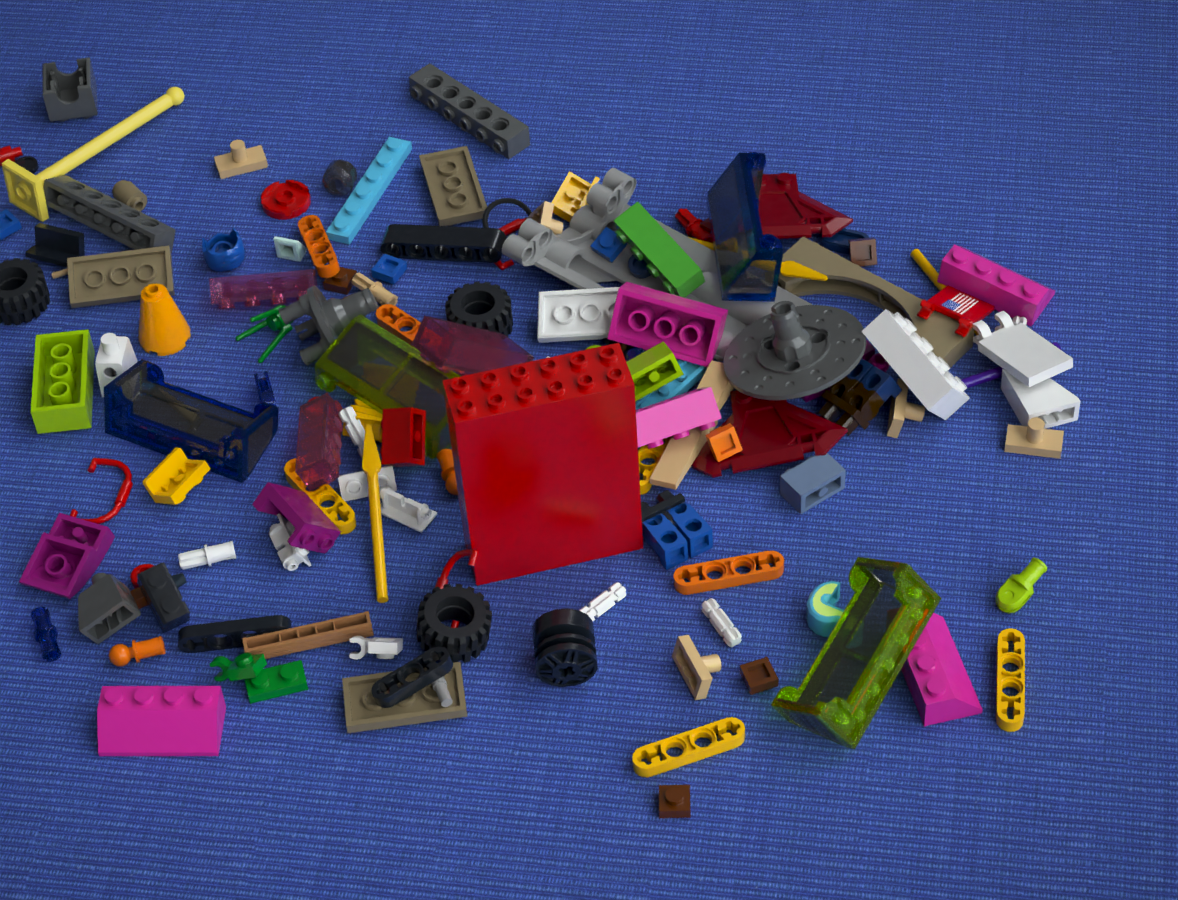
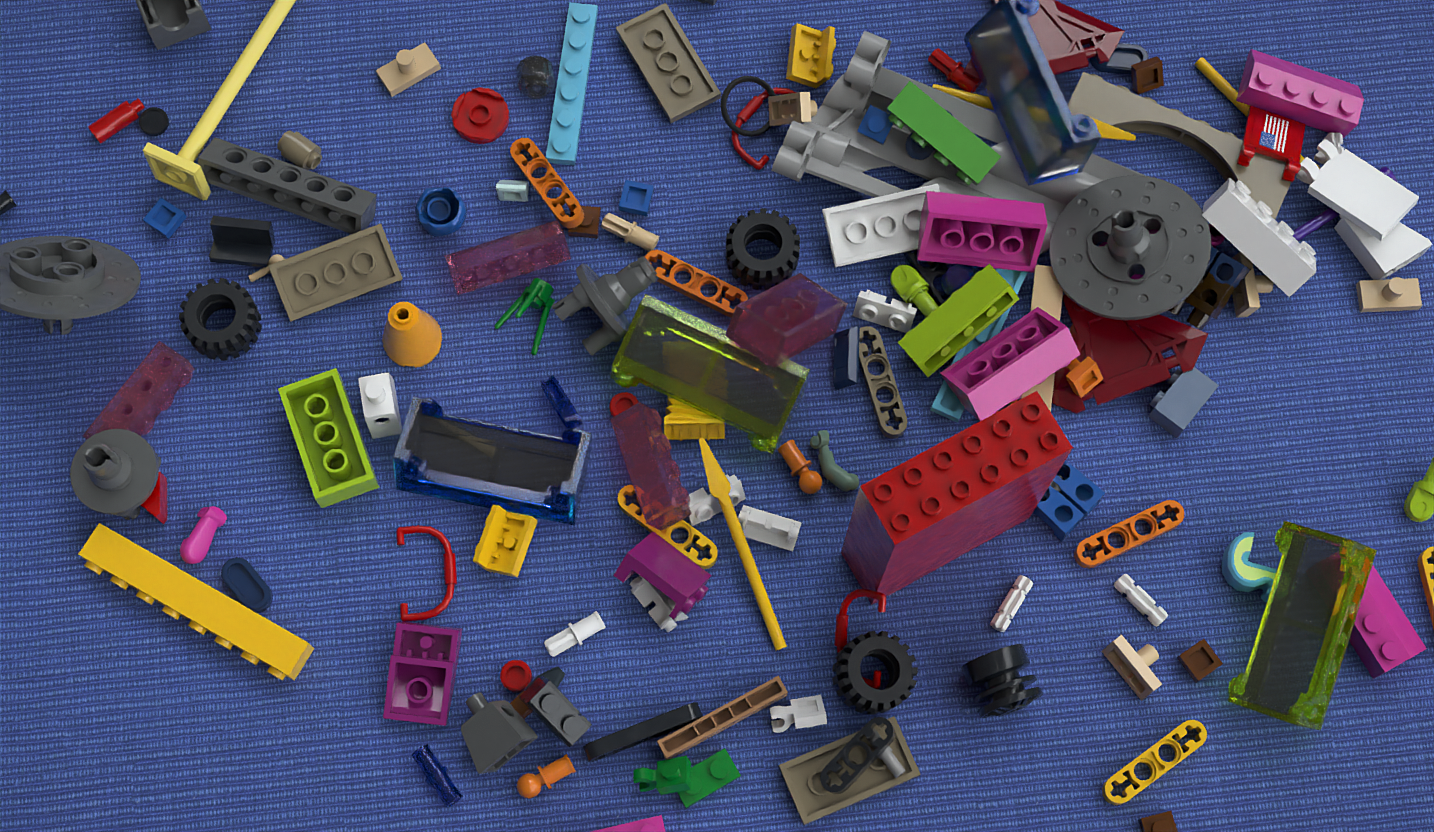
camera: 20 degrees left, 25 degrees up
(353, 427) = (682, 439): white axle -> none
(403, 437) = (745, 448): red brick -> none
(443, 243) = (687, 151): black beam -> none

